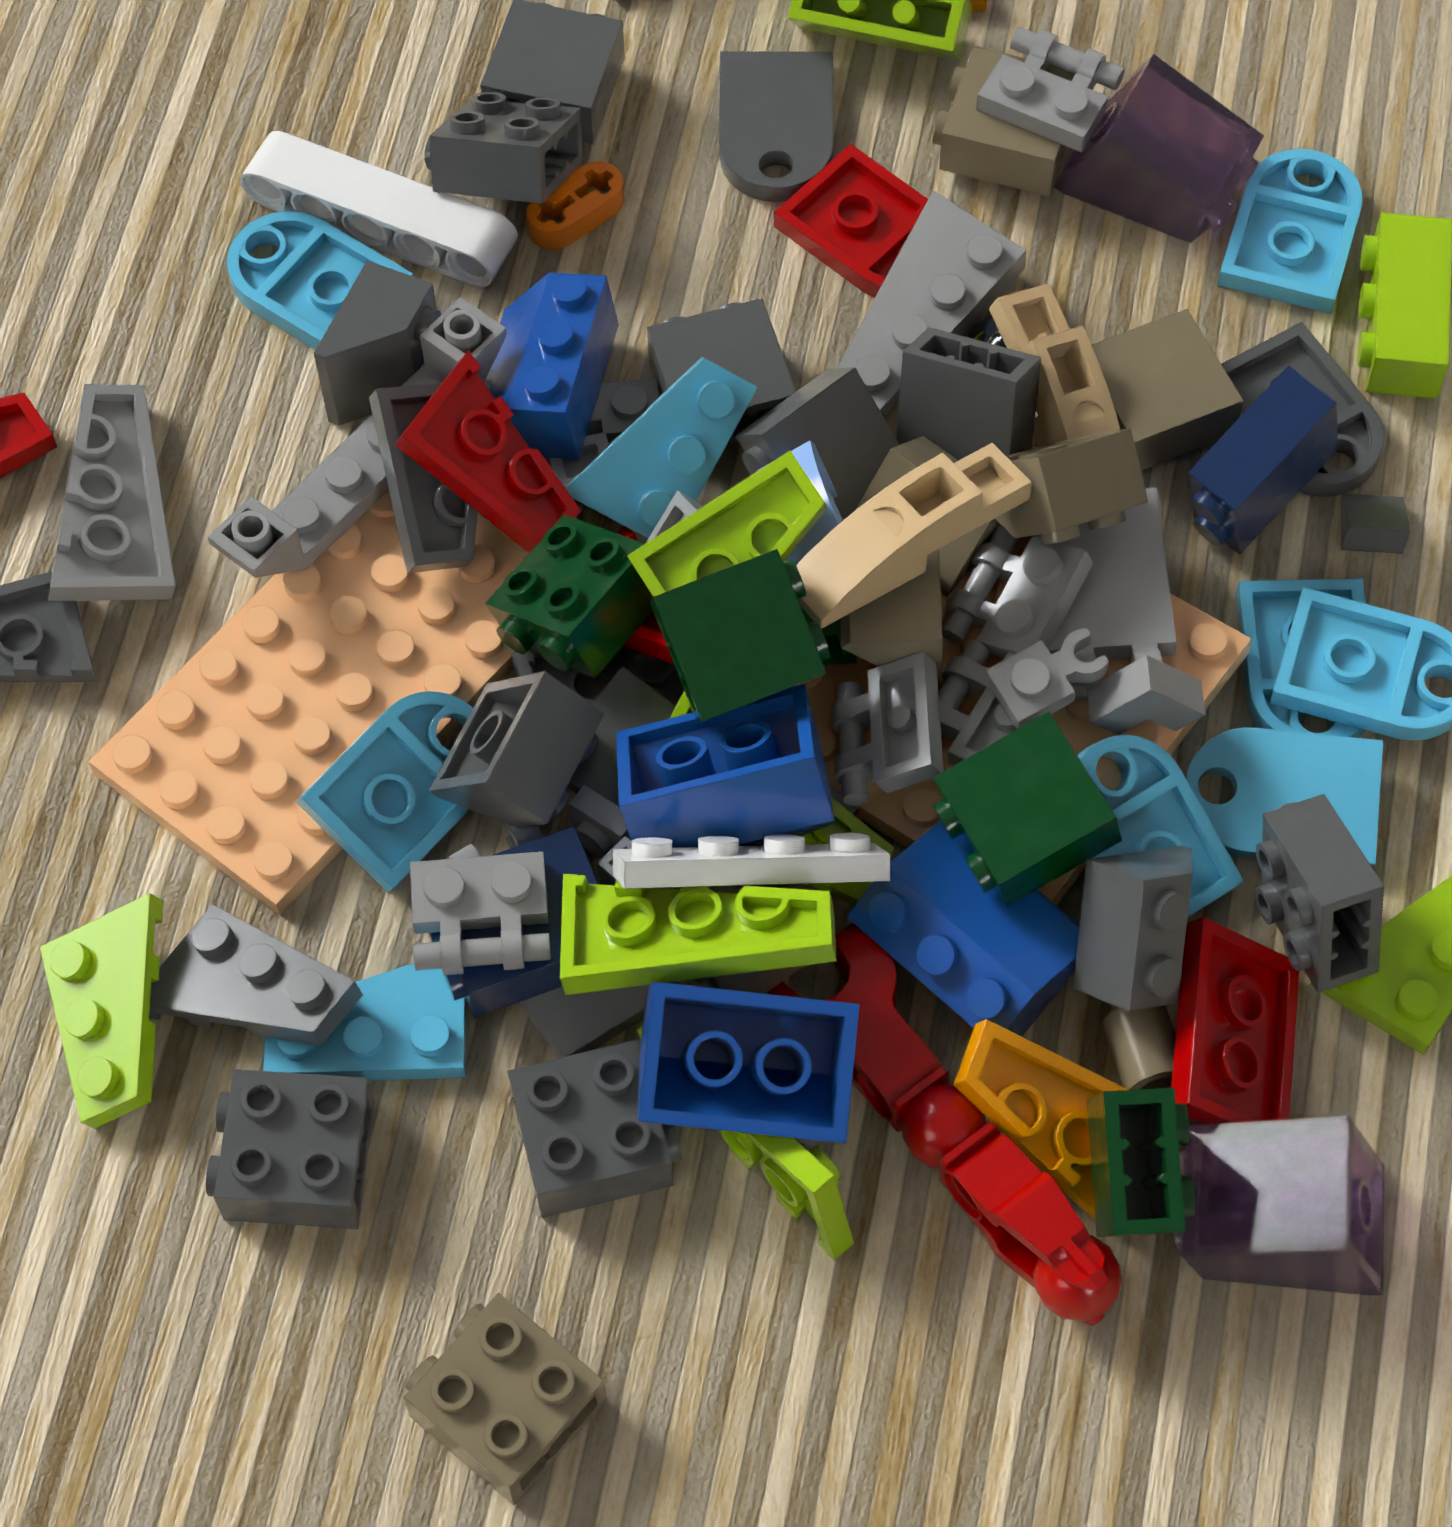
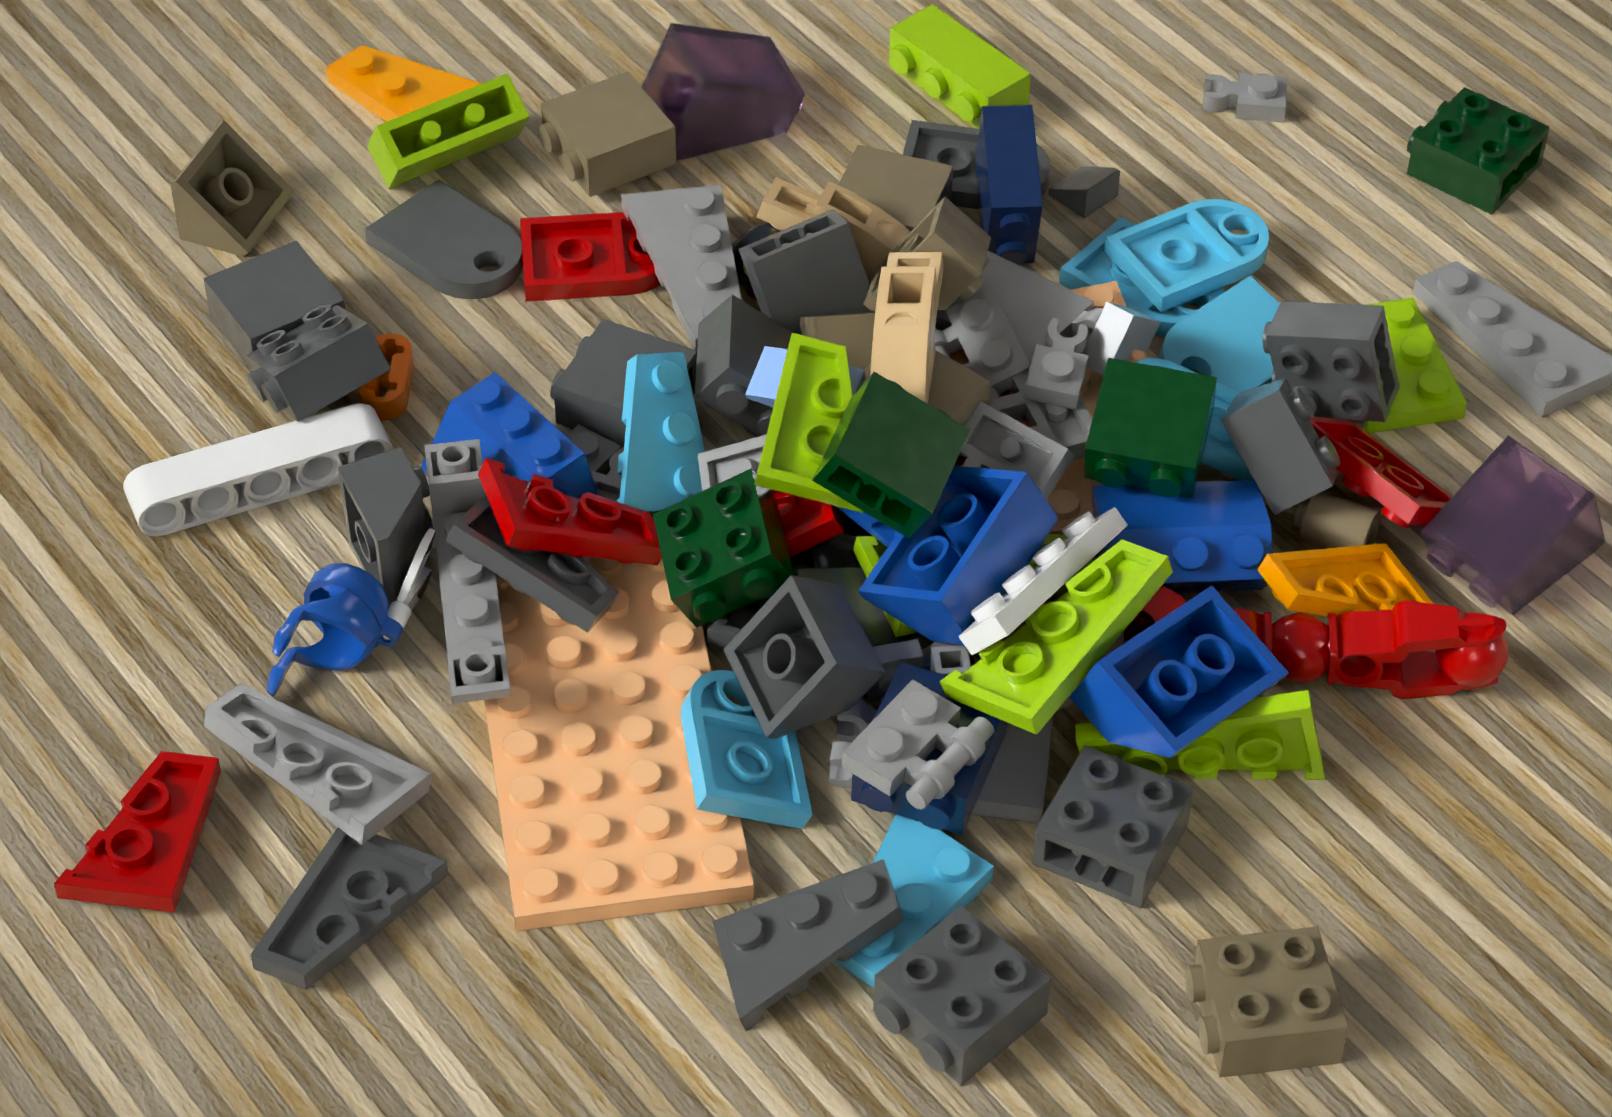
camera: 50 degrees left, 15 degrees down
(102, 1008) = (730, 1031): lime wing -> none
(270, 397) = (351, 614): none -> blue hair
(305, 278) = (263, 544): medium azure tile -> none
(1043, 101) = (626, 99): light grey plate -> none
(1138, 1162) = (1440, 547): dark green brick -> none
(1292, 236) = (844, 83): medium azure tile -> none

